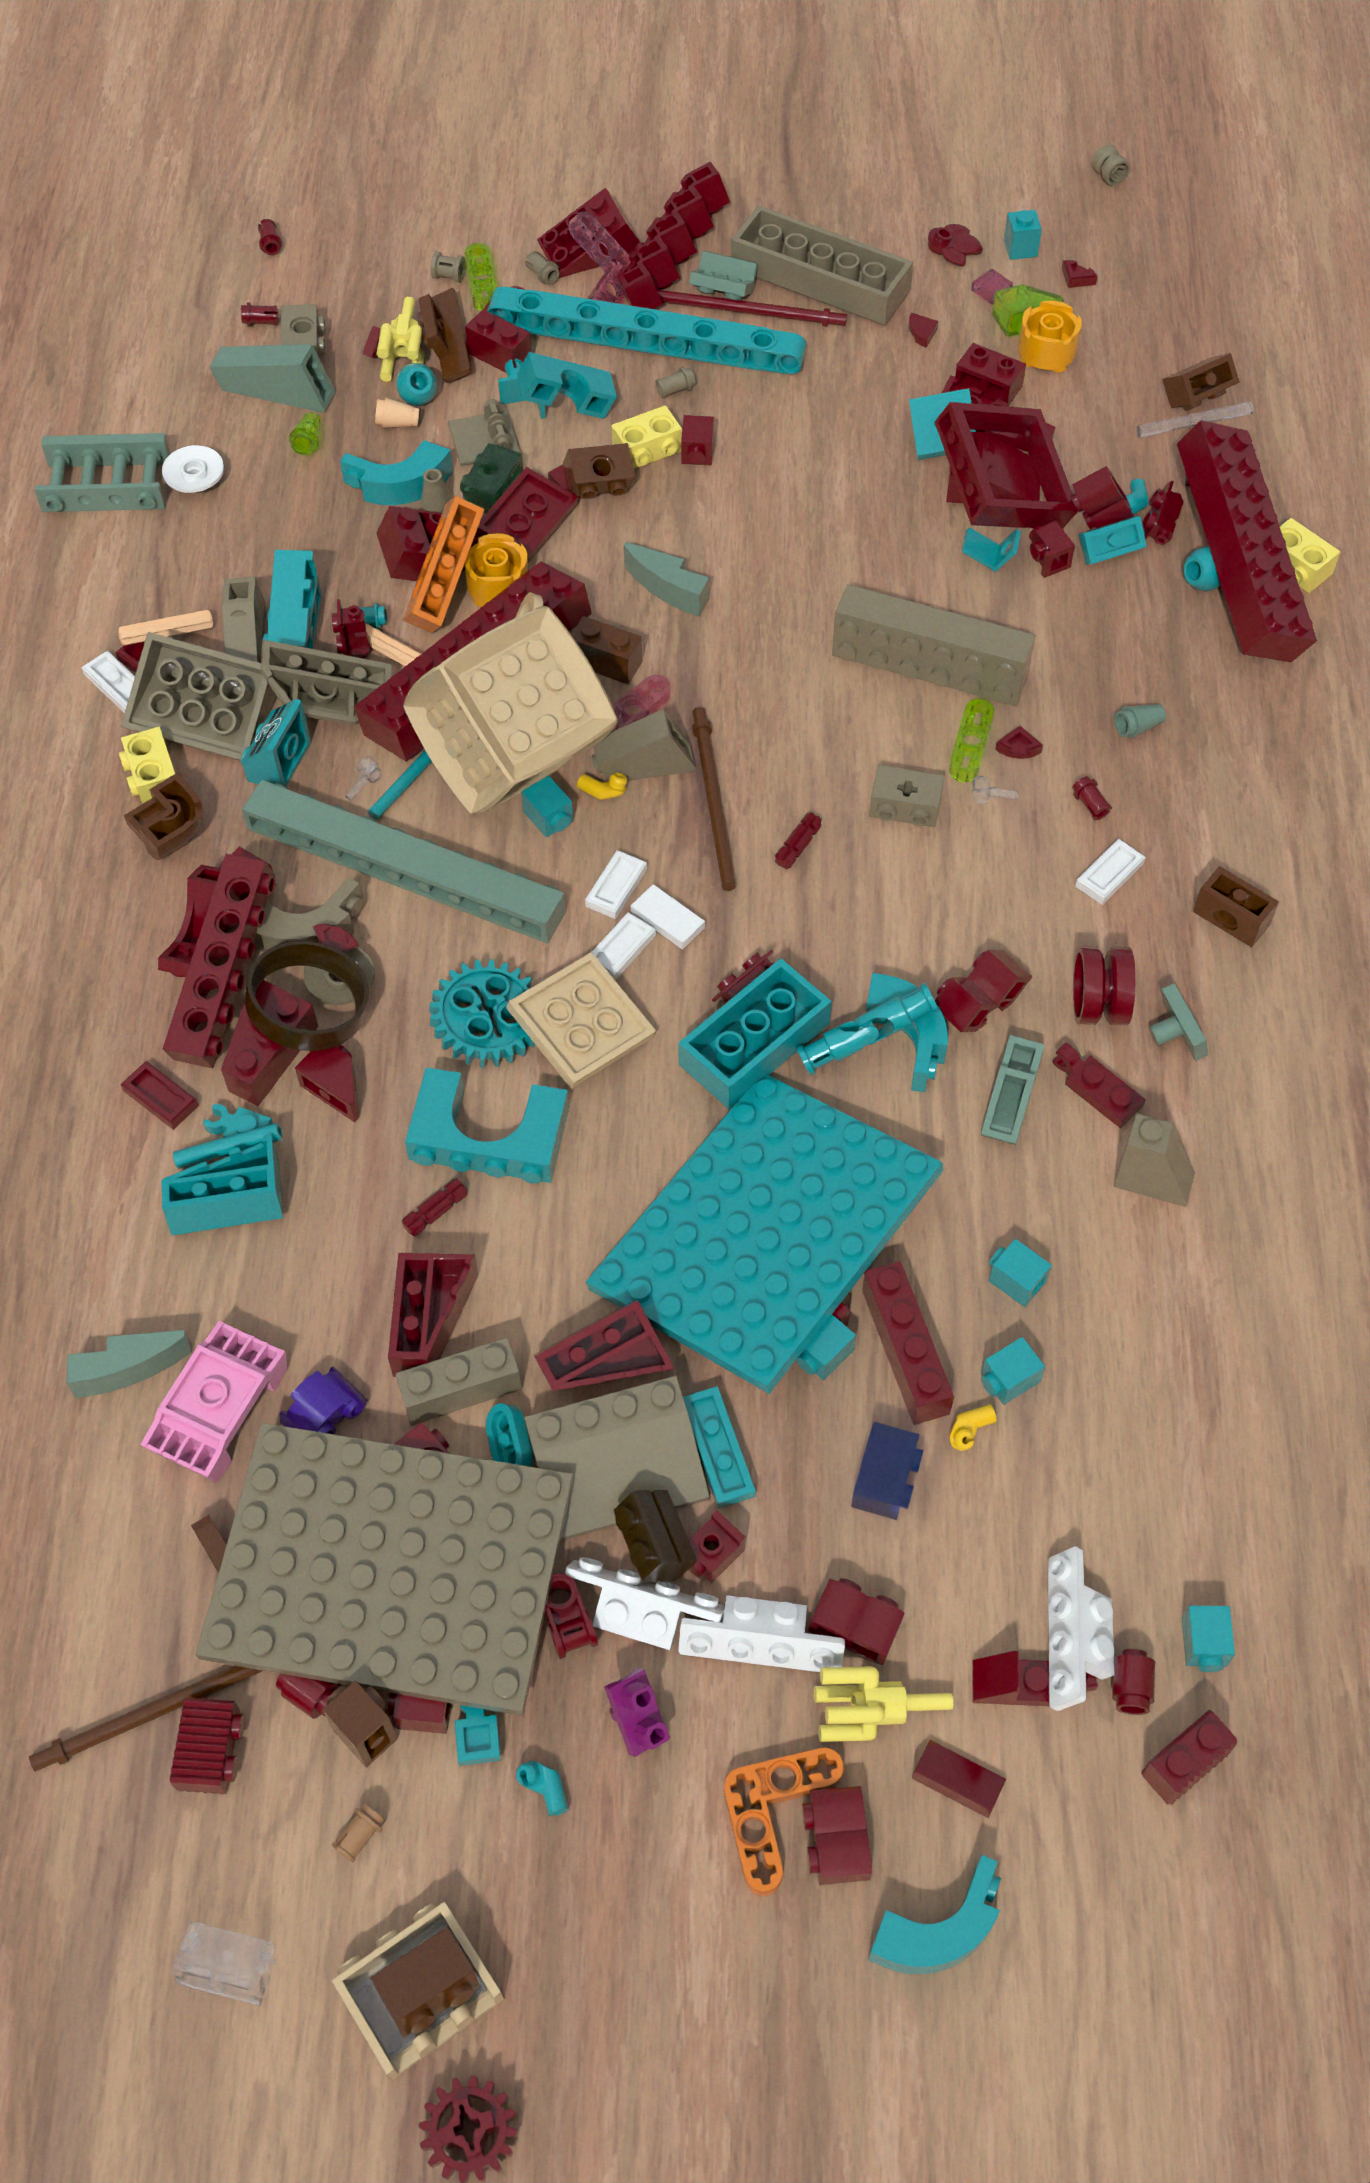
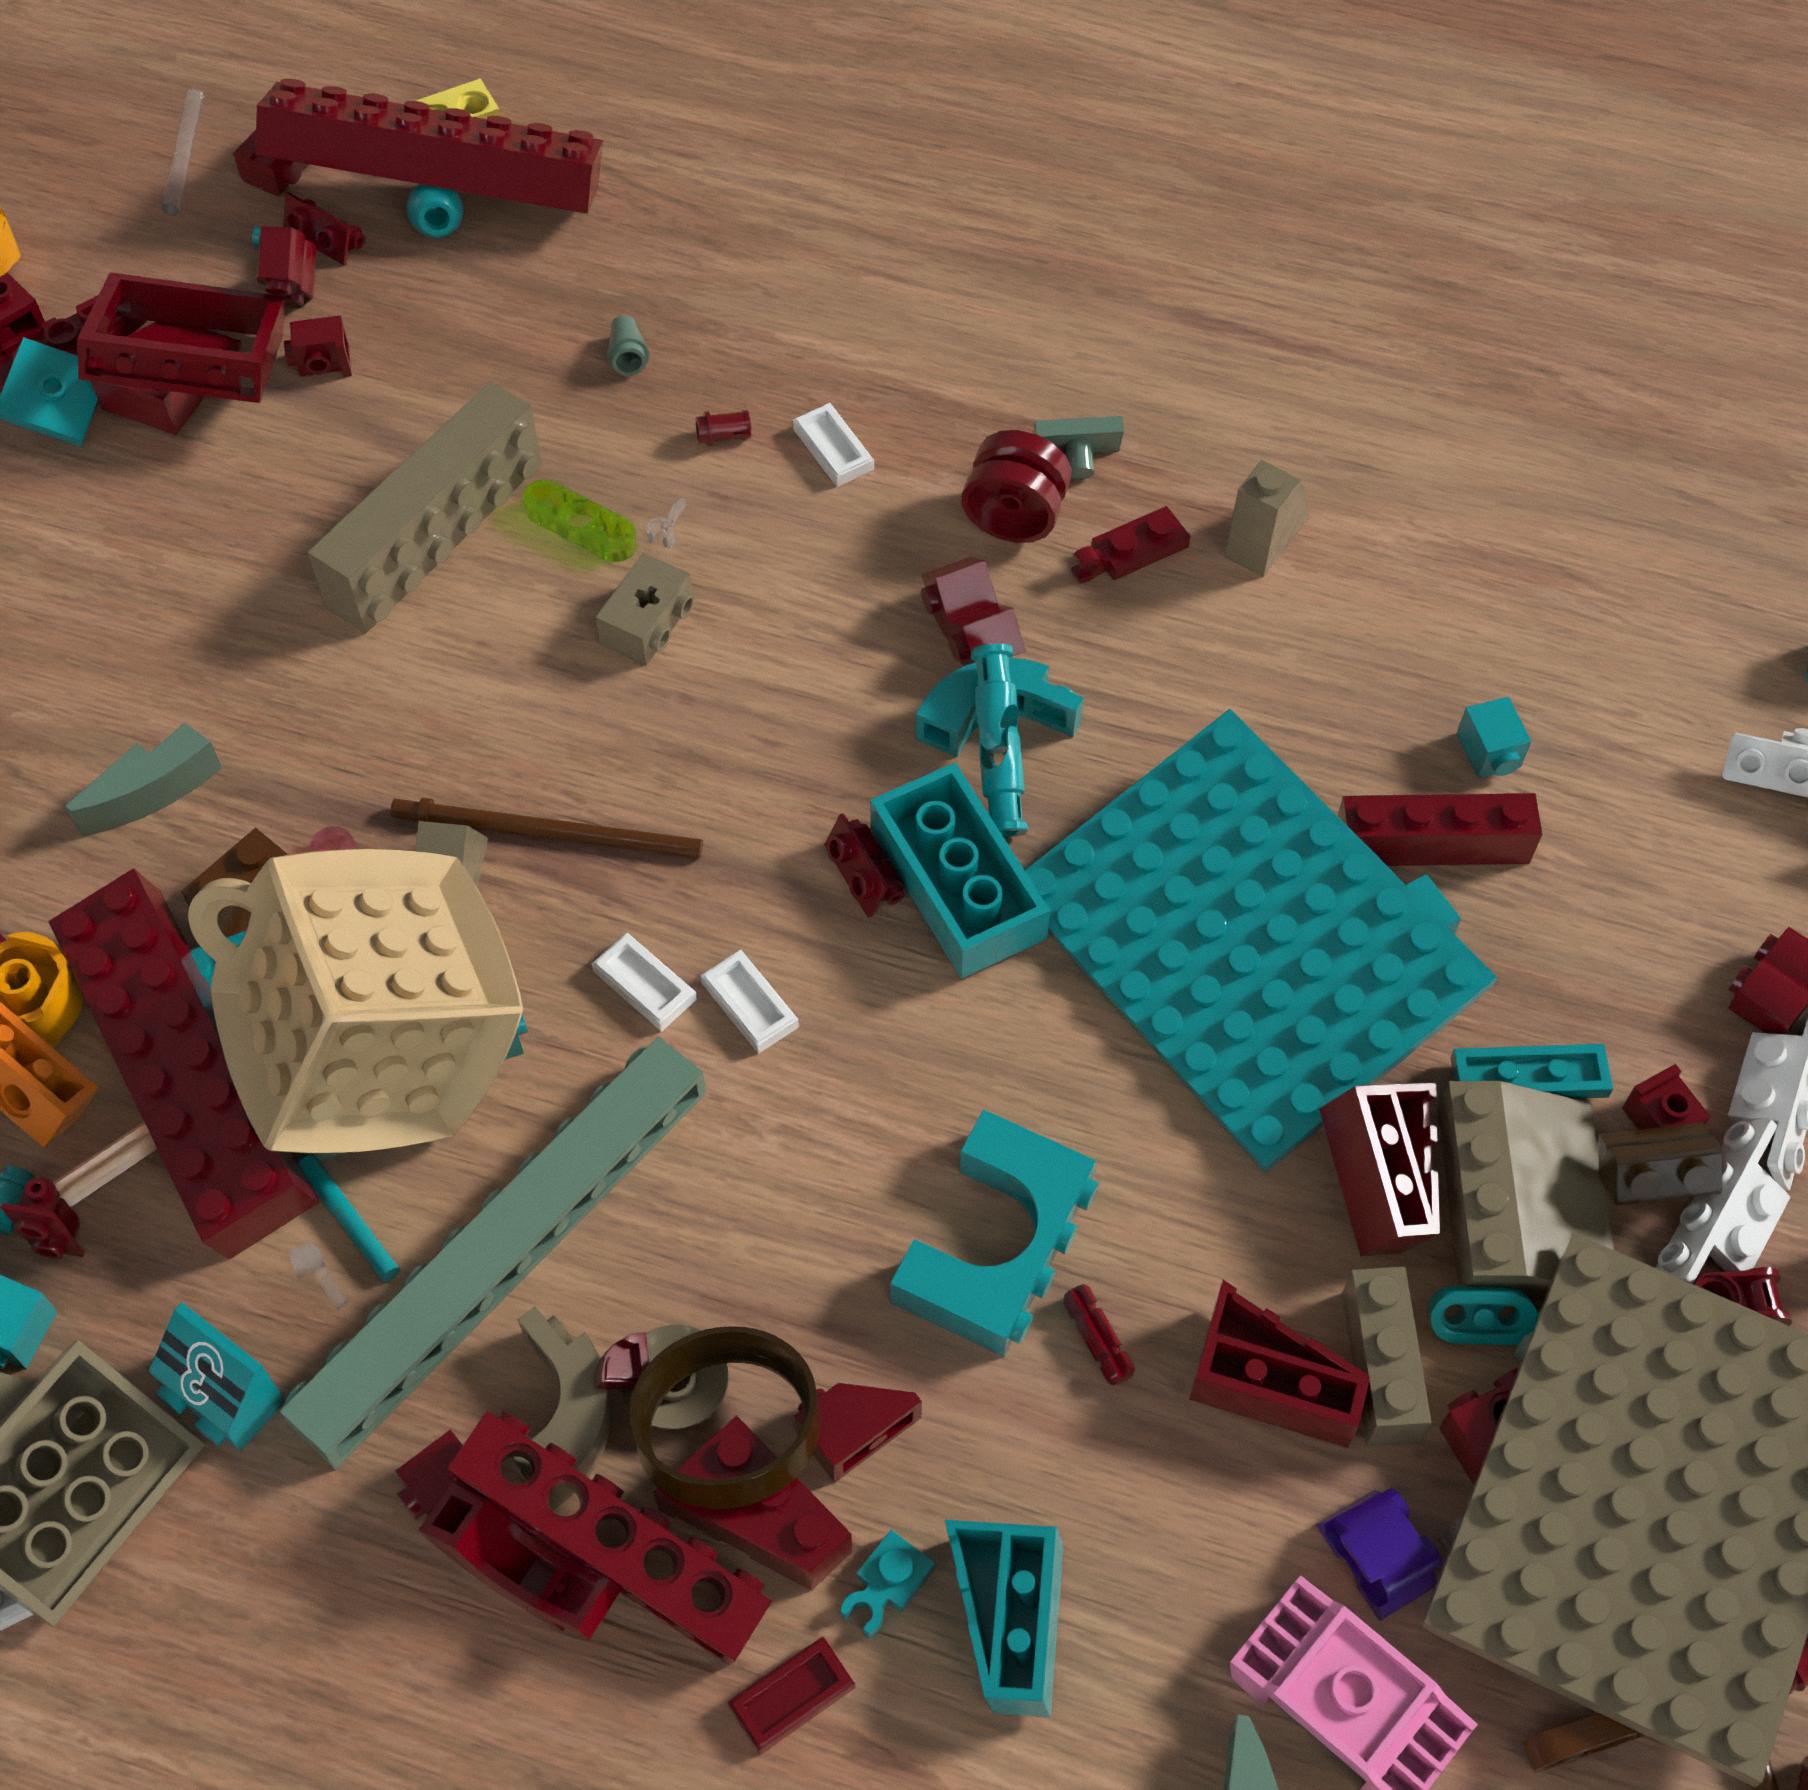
camera: 75 degrees left, 0 degrees up
(148, 761) = (162, 1577): light yellow brick -> none
(167, 818) = (286, 1577): reddish brown brick -> none
(220, 1147) = (925, 1600): teal piece -> none
(322, 680) = (134, 1273): dark tan wedge -> none
(457, 1023) = (819, 1230): teal gear -> none
(581, 1020) = (869, 1069): tan plate -> none
(667, 916) = (722, 932): white tile -> none
(798, 840) = (660, 749): dark red axle -> none
(886, 1470) = (1597, 900): clear blue brick -> none
(967, 1424) = (1552, 811): yellow arm -> none
(989, 552) = (290, 412): teal bracket -> none
(1012, 1090) = (1116, 627): sand green slope -> none
(1019, 744) = (606, 475): dark red tile -> none
(1019, 1272) = (1367, 692): teal brick -> none
(1112, 540) = (339, 283): teal plate -> none
(1201, 381) = (137, 118): reddish brown brick -> none
(1235, 906) = (943, 336): reddish brown brick -> none

